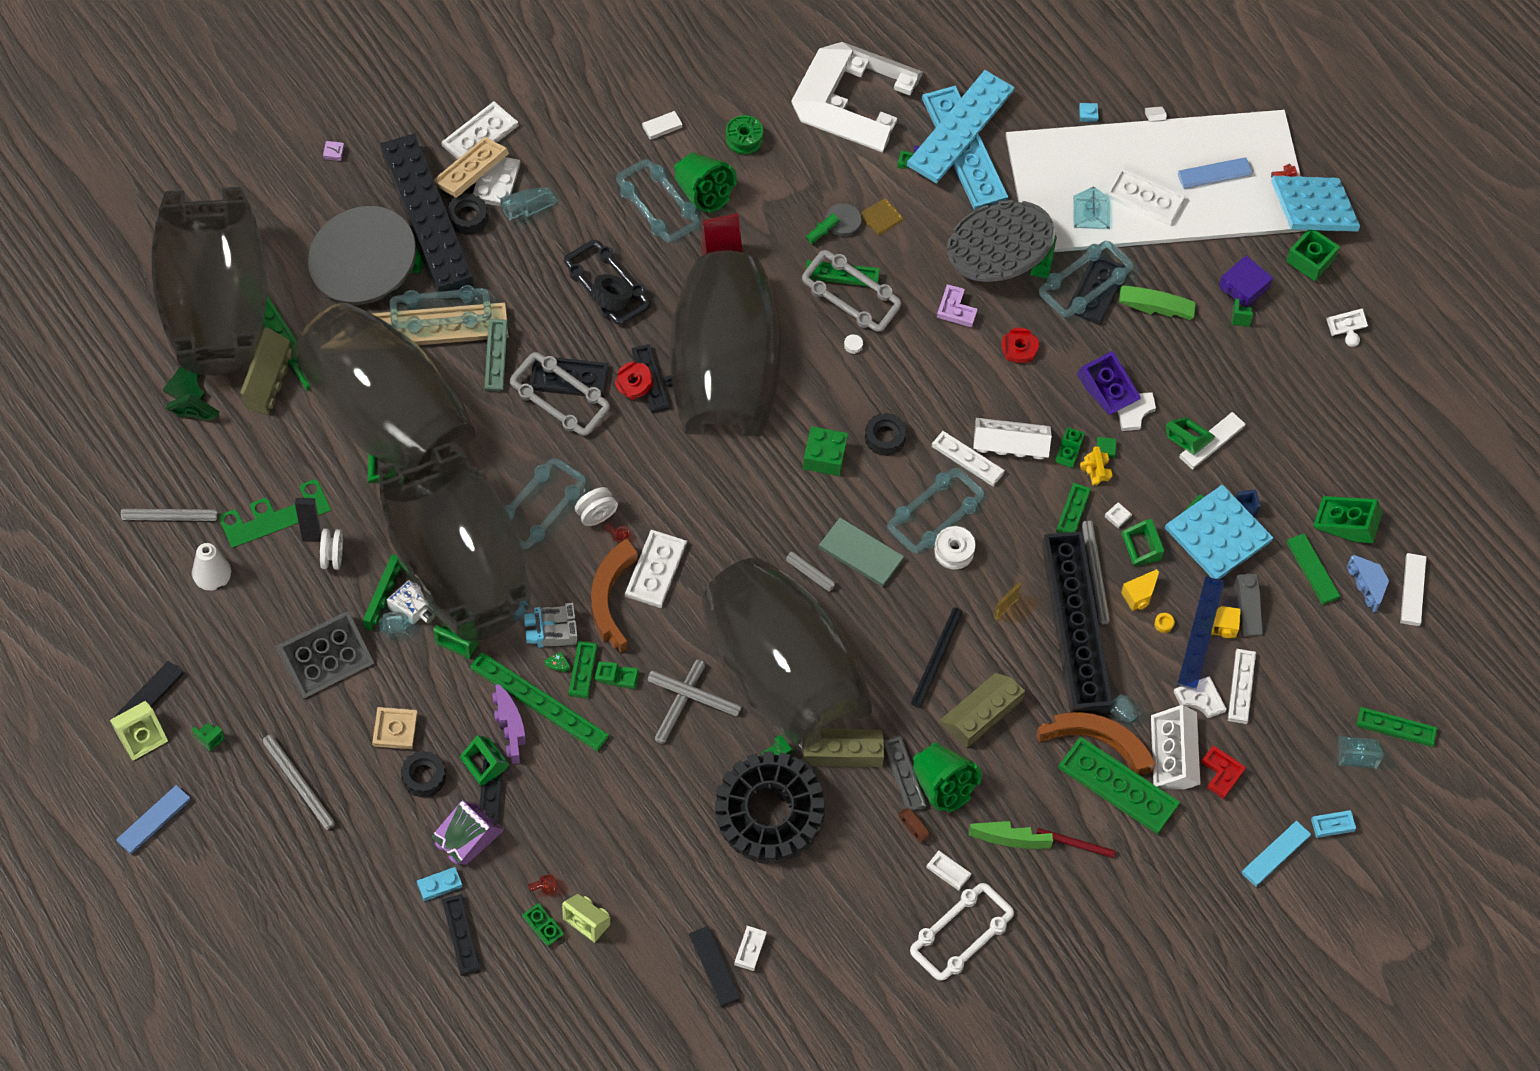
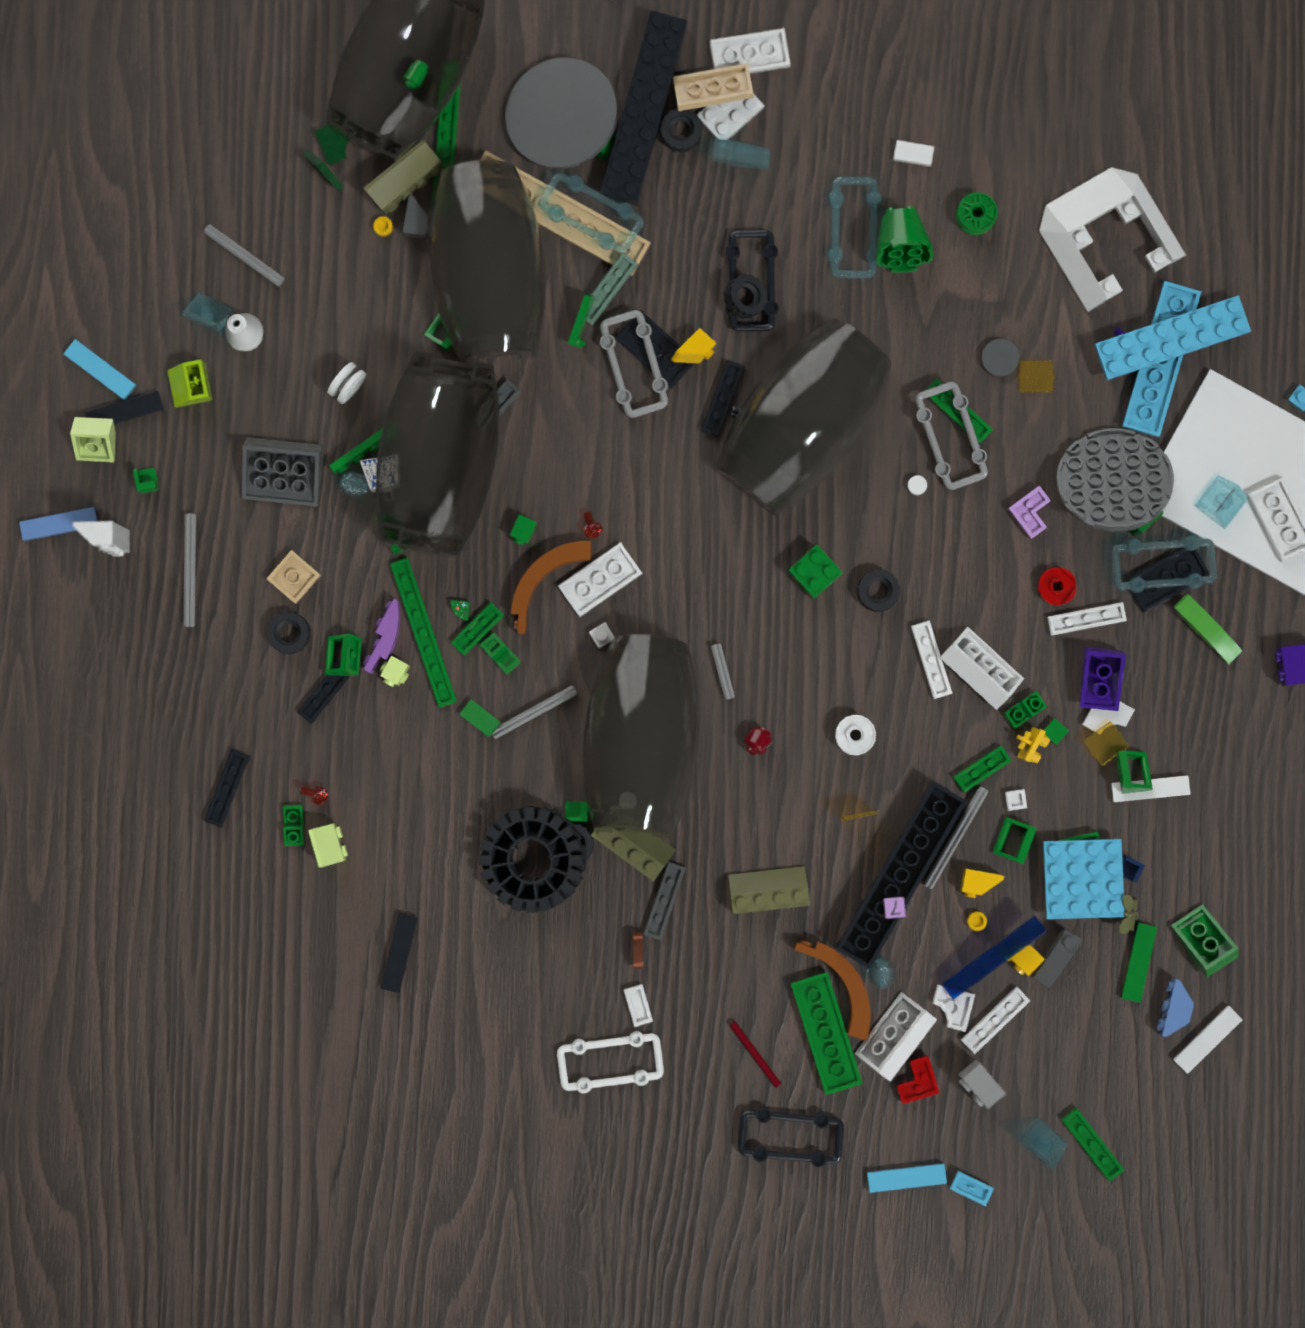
camera: 45 degrees right, 25 degrees up
(103, 676) = (100, 369): none -> medium azure tile
(170, 576) = (208, 313): none -> clear light blue slope
(193, 635) = (189, 383): none -> lime slope
(205, 788) = (106, 536): none -> white slope
(220, 297) = (415, 74): none -> green brick
(269, 521) = (324, 318): green piece -> none
(273, 424) = (383, 226): none -> yellow tile
(299, 401) = (416, 221): none -> dark grey slope
(308, 519) = (339, 348): black tile -> none
(439, 884) = (239, 734): medium azure plate -> none
(466, 832) = (283, 707): slope -> none
(498, 406) = (575, 337): none -> green hinge
(538, 744) = (394, 672): none -> yellowish green brick
(542, 474) = (567, 428): clear light blue bar -> none
(553, 626) = (473, 570): hips -> none
(564, 569) = (523, 530): none -> green brick
(596, 506) = (586, 494): white wheel -> none
(601, 352) = (695, 349): none -> yellow slope
(636, 389) = (698, 386): red plate -> none
(639, 733) = (480, 718): none -> green tile
(690, 608) = (601, 635): none -> white plate
(694, 693) = (547, 716): light grey axle -> none
(721, 234) = (872, 315): dark red slope -> none
(750, 948) = (436, 959): white plate -> none
(822, 229) = (973, 356): green pin -> none
(861, 552) = (777, 683): sand green tile -> none
(881, 601) = (758, 741): none -> dark red head
(903, 158) = (1101, 334): green tile -> none
(936, 657) = (767, 819): black axle -> none
(942, 482) = (893, 666): clear light blue bar -> none
(946, 777) = (689, 931): green cone -> none
(1002, 834) = (702, 1007): bright green slope -> none
(1061, 355) = (1086, 618): none -> white tile
(1092, 643) = (894, 907): none -> lavender tile
(1144, 914) = (817, 1158): none -> black bar
(1151, 430) = (1106, 743): none -> clear yellow piece
(1241, 315) = (1272, 690): green panel -> none
(1272, 734) = (980, 1082): none -> light grey brick
(1279, 543) = (1131, 915): none -> olive piece

